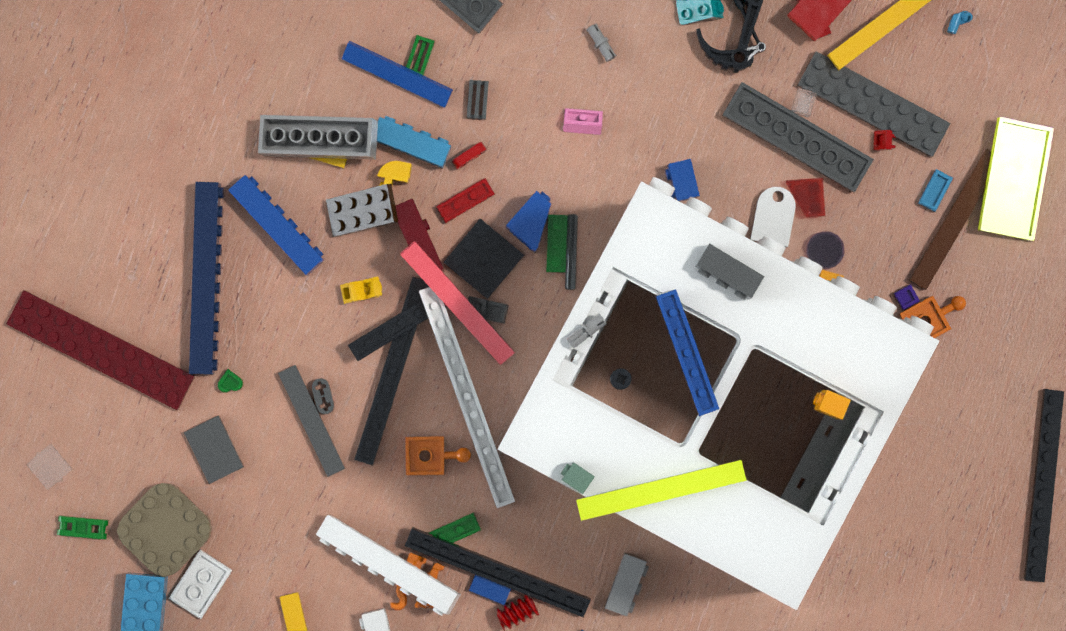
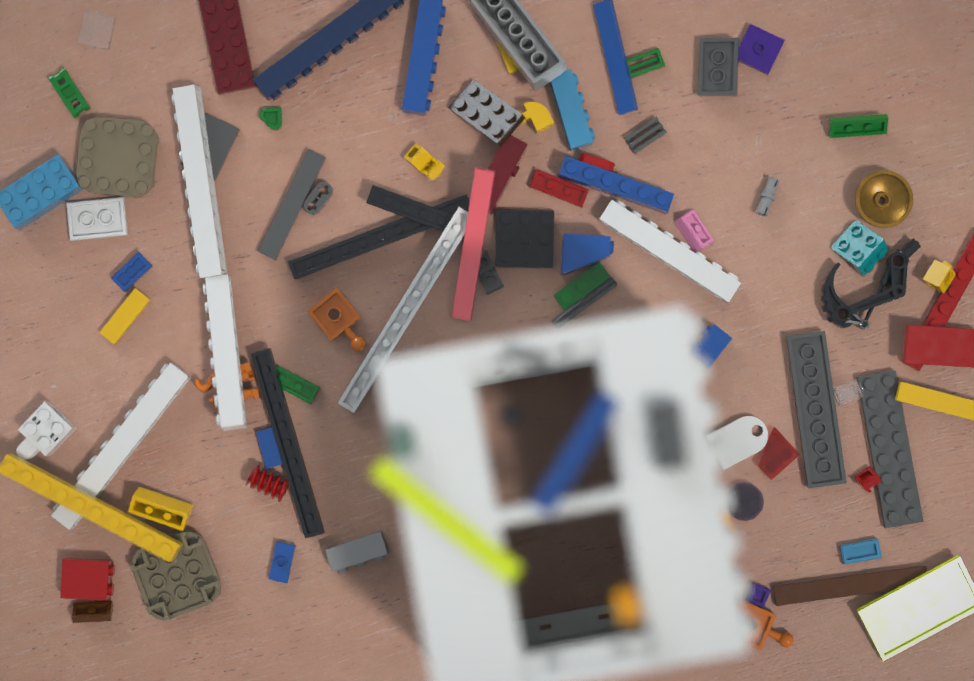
camera: 55 degrees right, 0 degrees up
(236, 479) = (199, 181): none -> white brick
(265, 589) = (132, 272): none -> blue plate
(498, 154) = (616, 185): none -> blue brick
(584, 153) = (670, 252): none -> white brick

